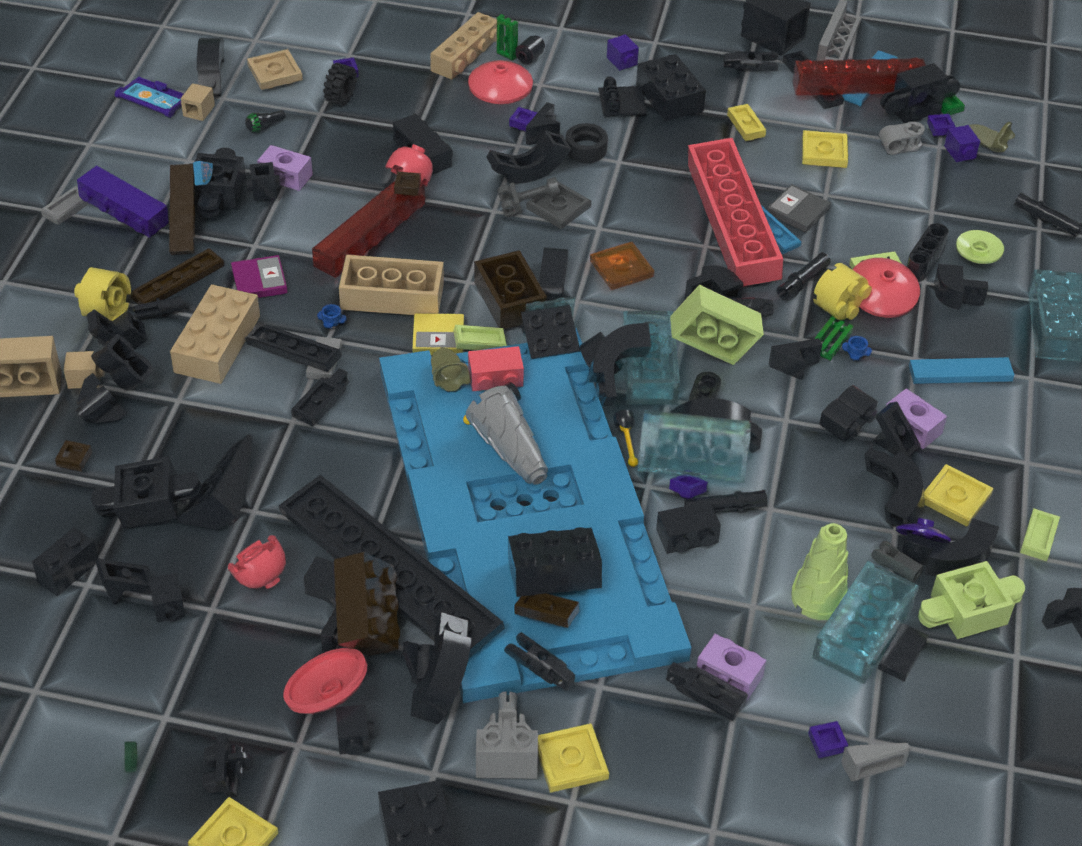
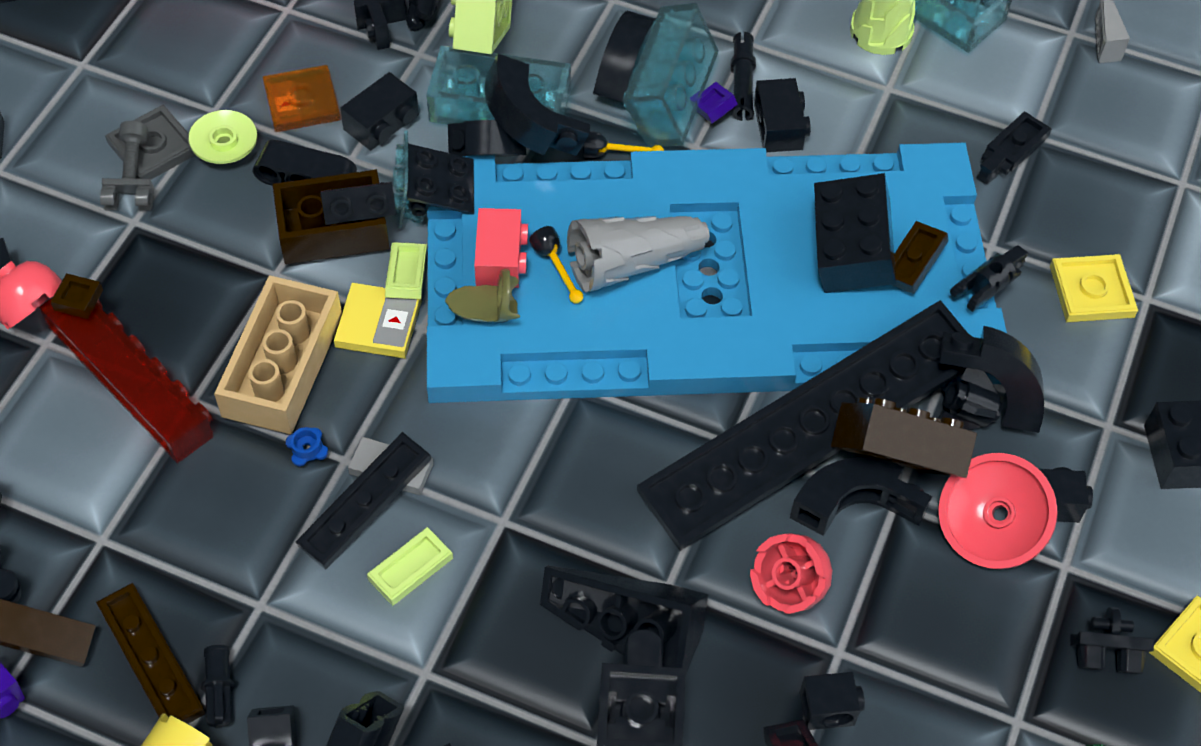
camera: 80 degrees left, 10 degrees up
(215, 334) = (311, 600): tan brick -> none
(251, 379) = (410, 566): none -> yellowish green tile
(260, 276) = (187, 537): magenta tile -> none
(320, 398) = (478, 474): black hinge -> none
(507, 747) = (1083, 337): light grey brick -> none
(509, 287) = (358, 203): none -> black hinge
(533, 164) = (61, 146): black arch -> none
(568, 230) = (222, 137): none -> yellowish green dish
(587, 132) = (31, 70): black tyre -> none
(611, 298) = (379, 111): none -> black brick
(705, 386) = (557, 50): black plate -> none
(722, 654) = (984, 117): lavender brick -> none
(827, 739) = (1080, 61): dark purple plate -> none

